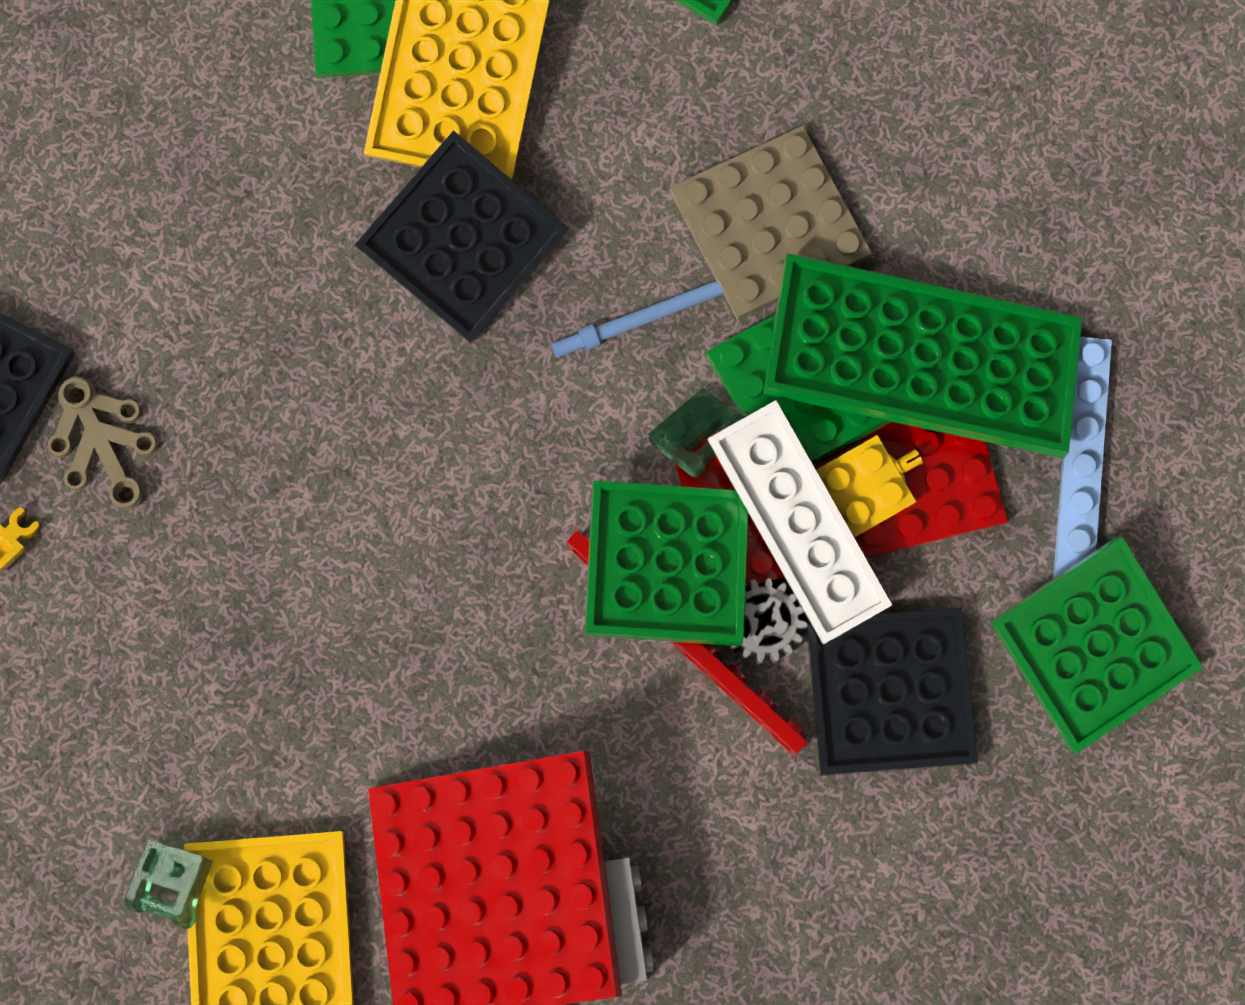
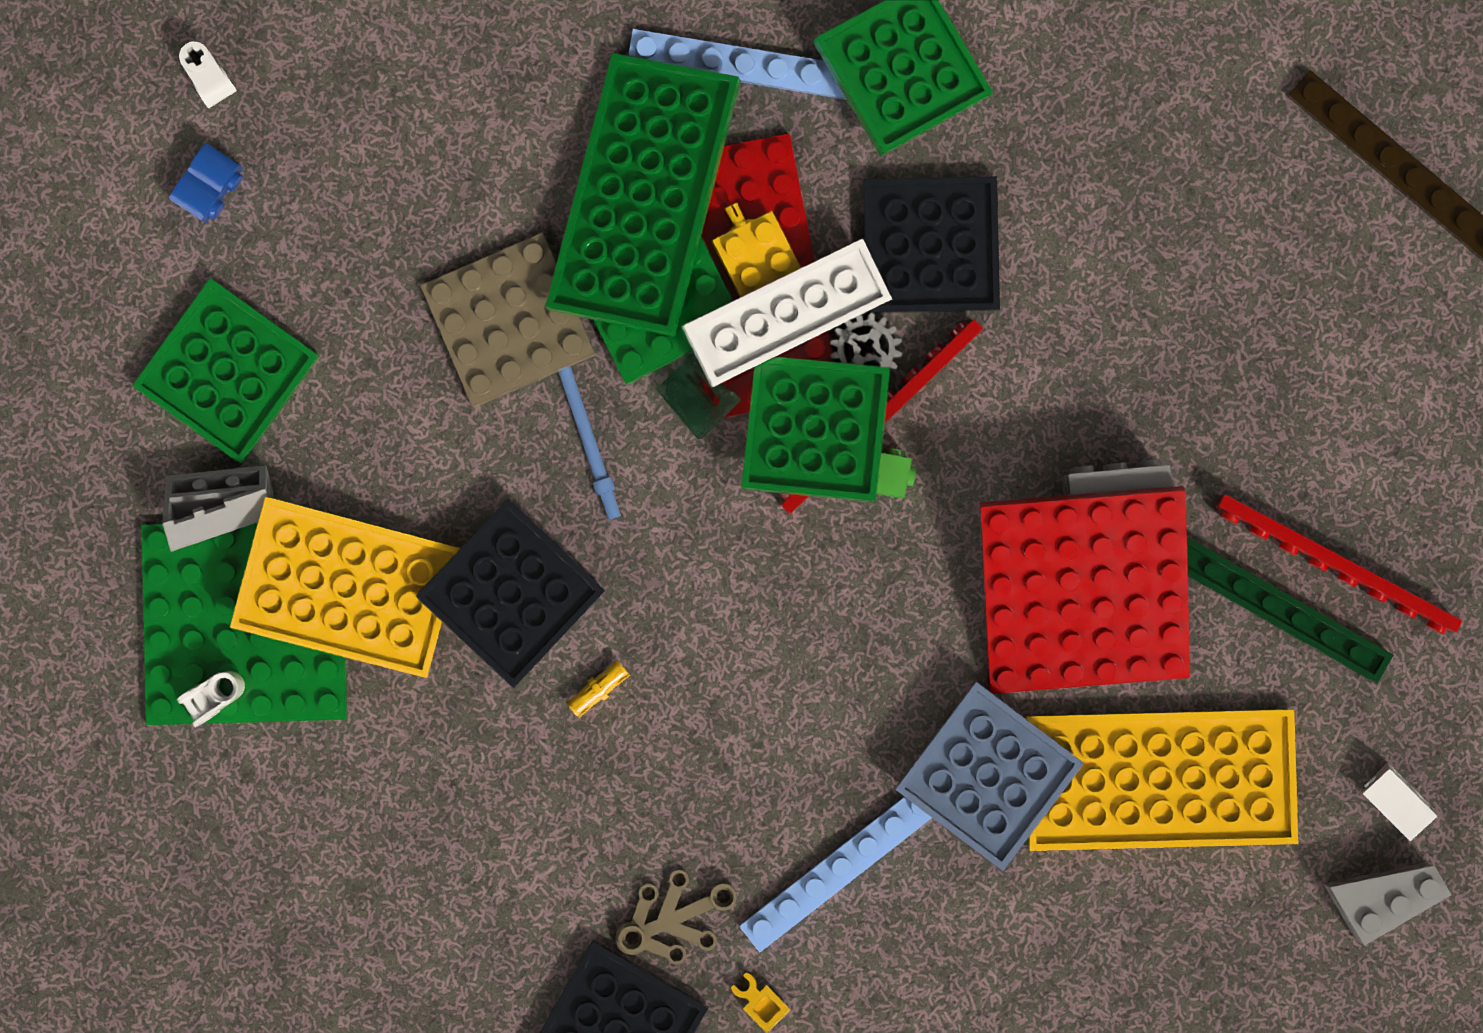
camera: 85 degrees left, 10 degrees up
(172, 870) = (1054, 858): clear green plate -> none
(175, 642) = (833, 873): none -> light blue plate
(269, 788) = (989, 776): none -> sand blue plate
(359, 342) = (598, 688): none -> yellow pin
(620, 660) = (895, 473): none -> bright green brick

